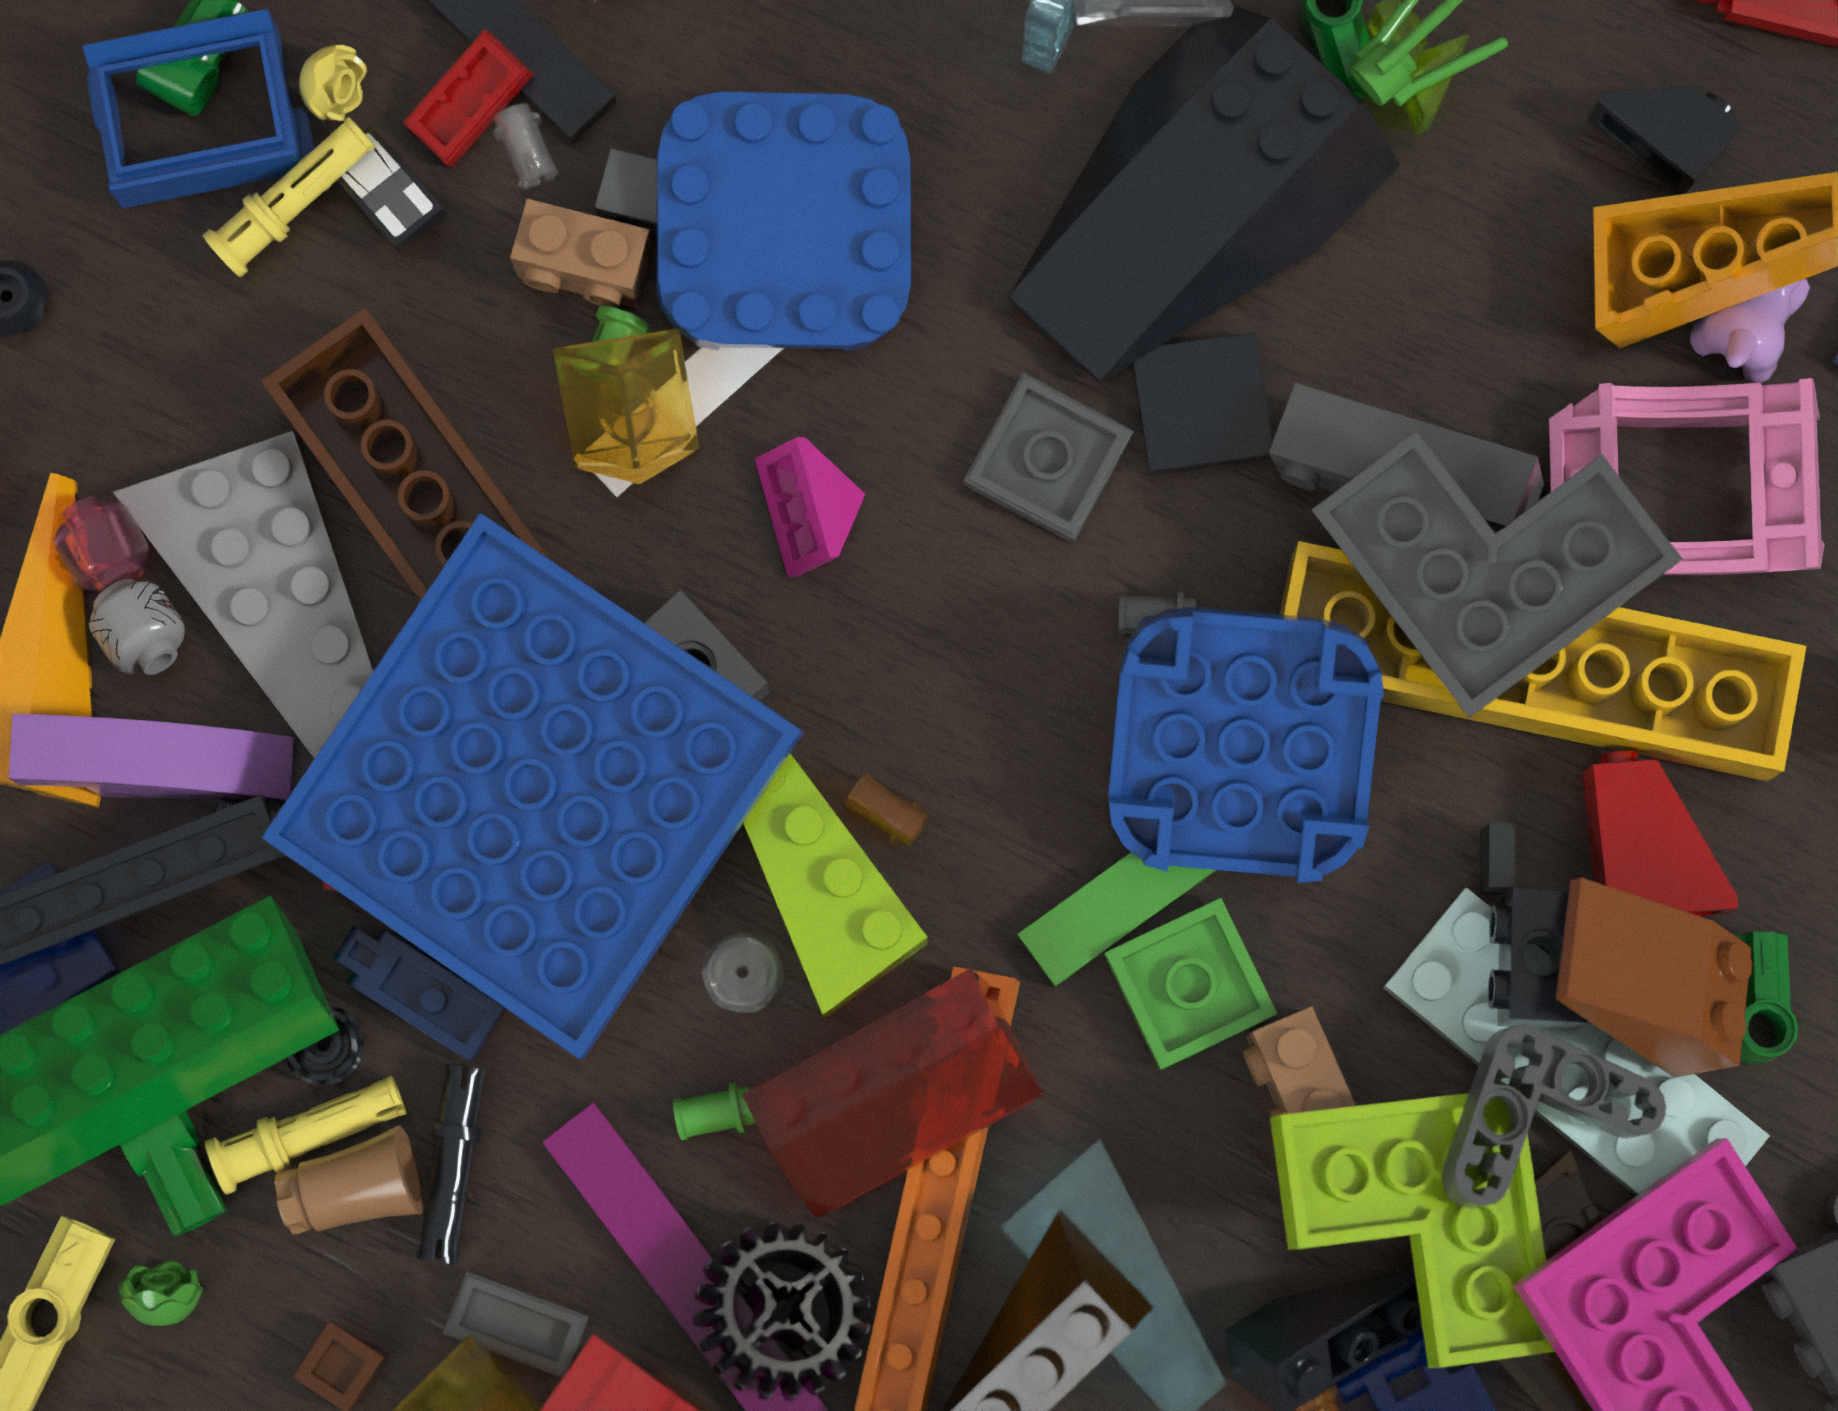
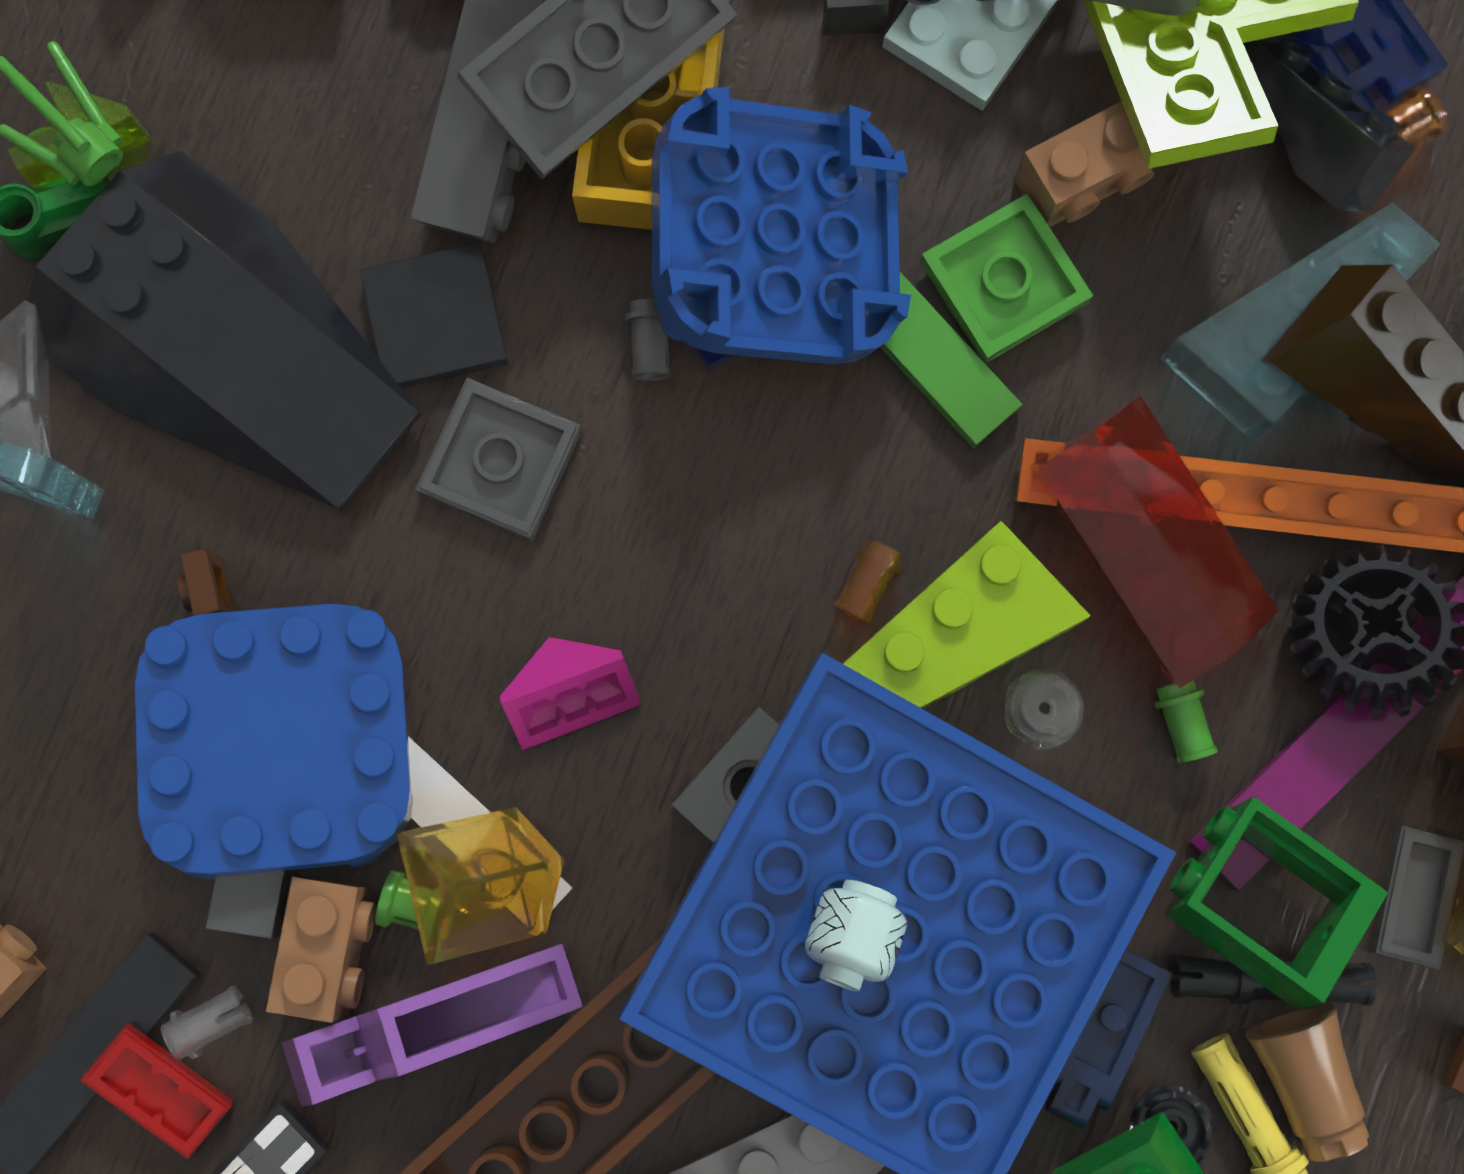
camera: 95 degrees left, 0 degrees up
(477, 1209) = (1336, 933): none -> green window
(499, 353) = (431, 1025): none -> medium lavender slope
(531, 732) = (856, 934): none -> light aqua head
(941, 165) = (204, 583): none -> reddish brown plate

